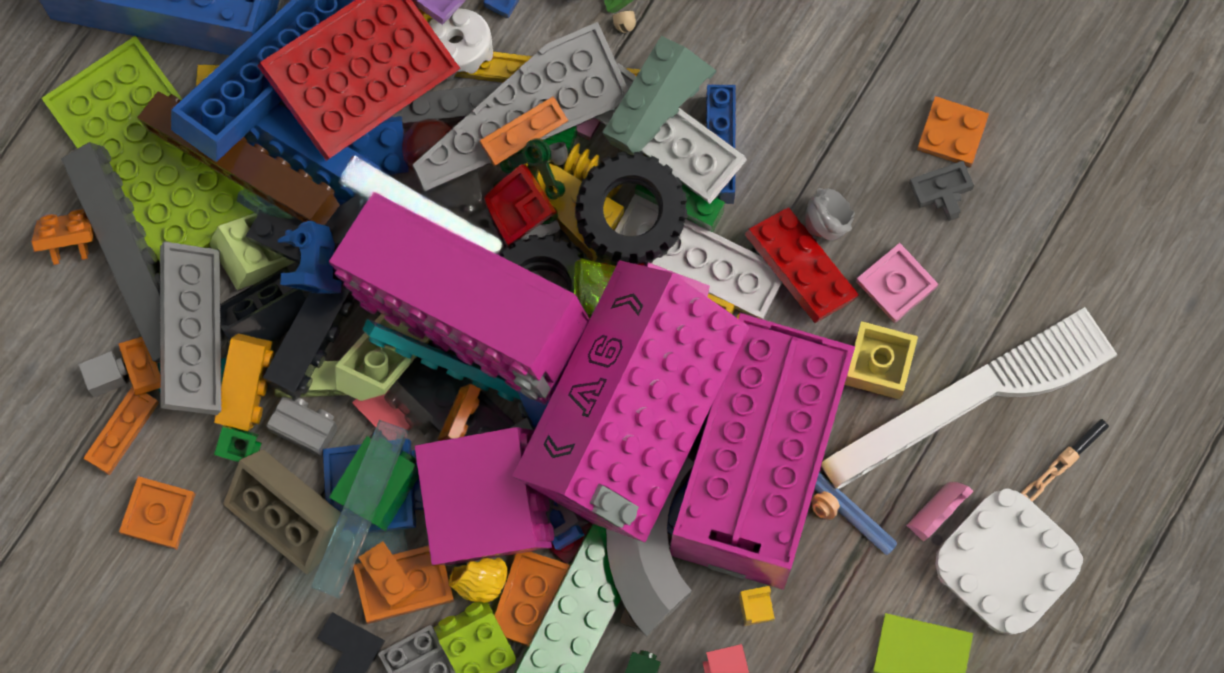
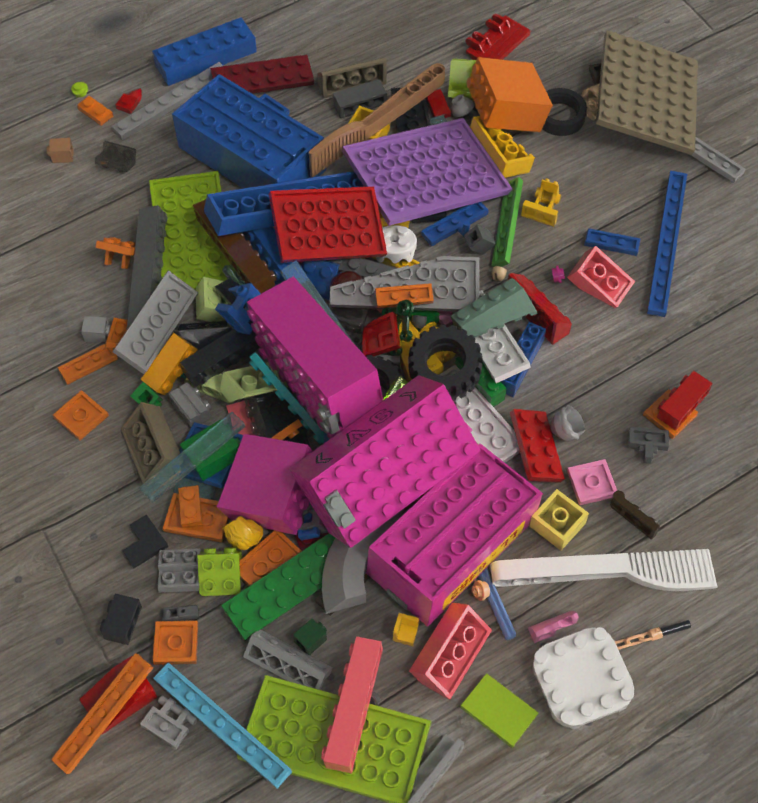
camera: 25 degrees right, 15 degrees down
(731, 62) = (547, 314): none -> red slope
(826, 604) = (450, 650): none -> coral slope
(965, 108) = (683, 400): none -> red brick
(971, 304) = (634, 515): none -> dark brown plate

